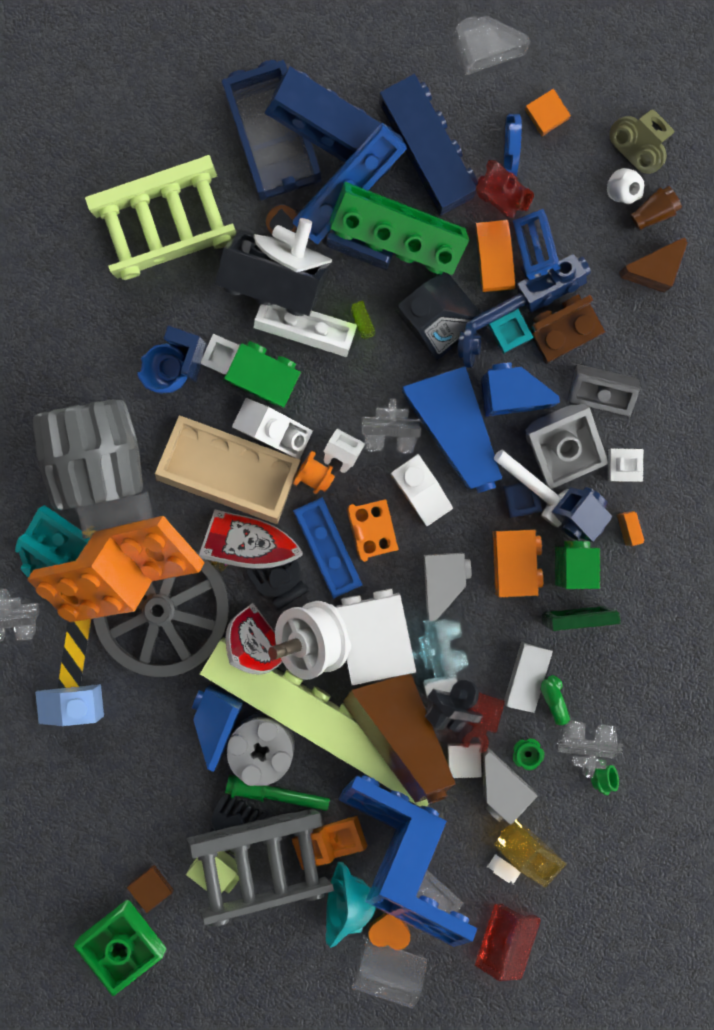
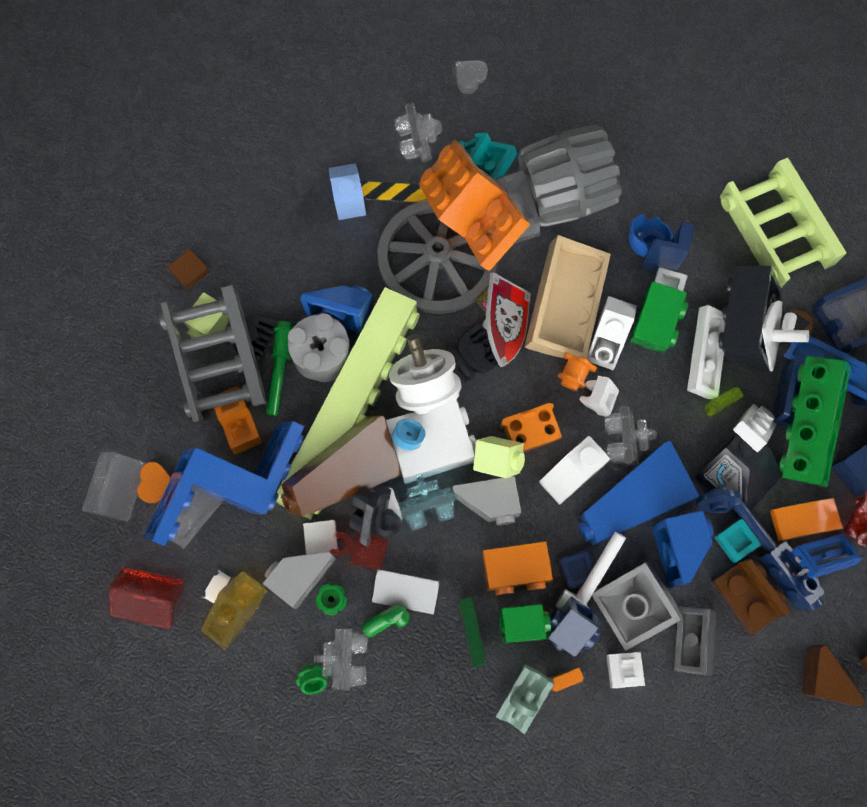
camera: 90 degrees right, 15 degrees down
(120, 967) = (135, 230): green brick -> none
(248, 642) = (420, 317): shield -> none
(327, 547) = (508, 393): blue tile -> none
(346, 906) = (172, 438): teal hat -> none
(372, 664) = (408, 434): none -> dark azure tile
(400, 296) = (756, 426): none -> white plate
(402, 569) = (498, 456): none -> yellowish green brick
(645, 570) = (525, 698): none -> sand green hips

